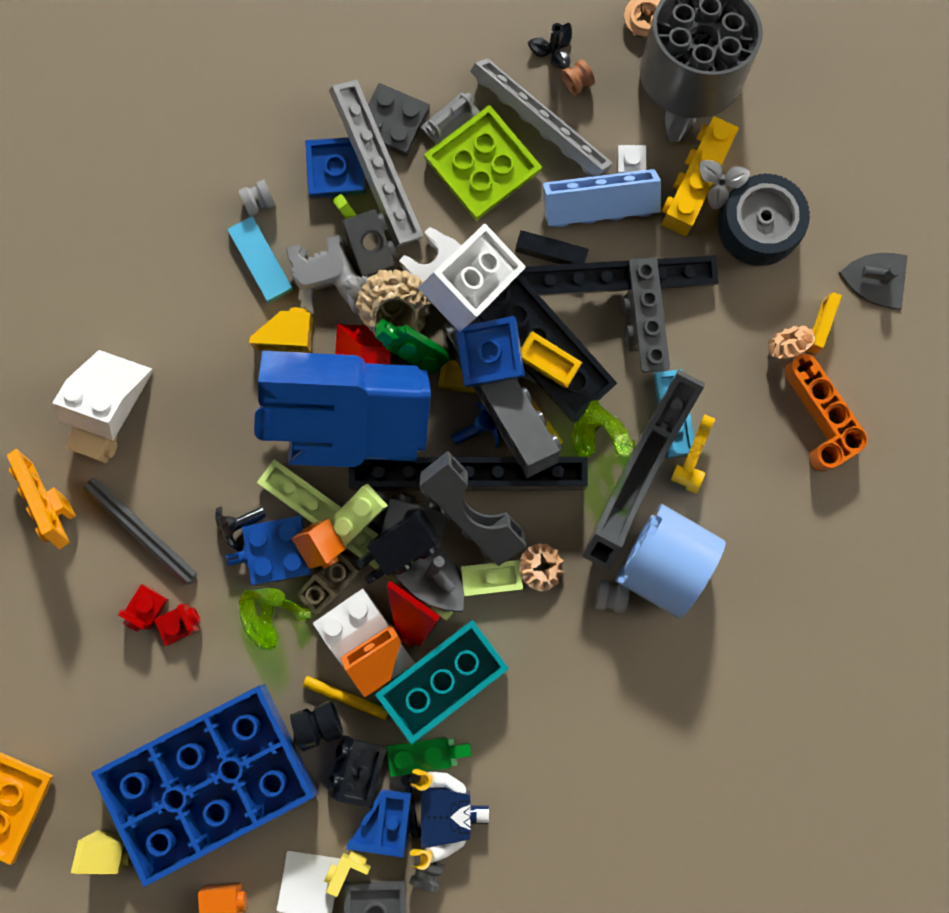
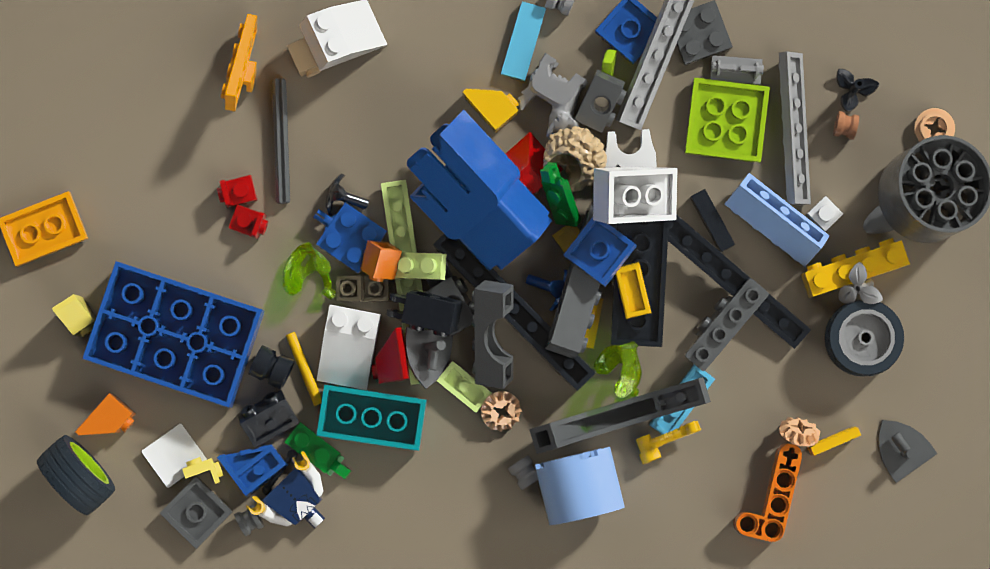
camera: 45 degrees right, 5 degrees up
(373, 661) = (343, 364): orange slope -> none

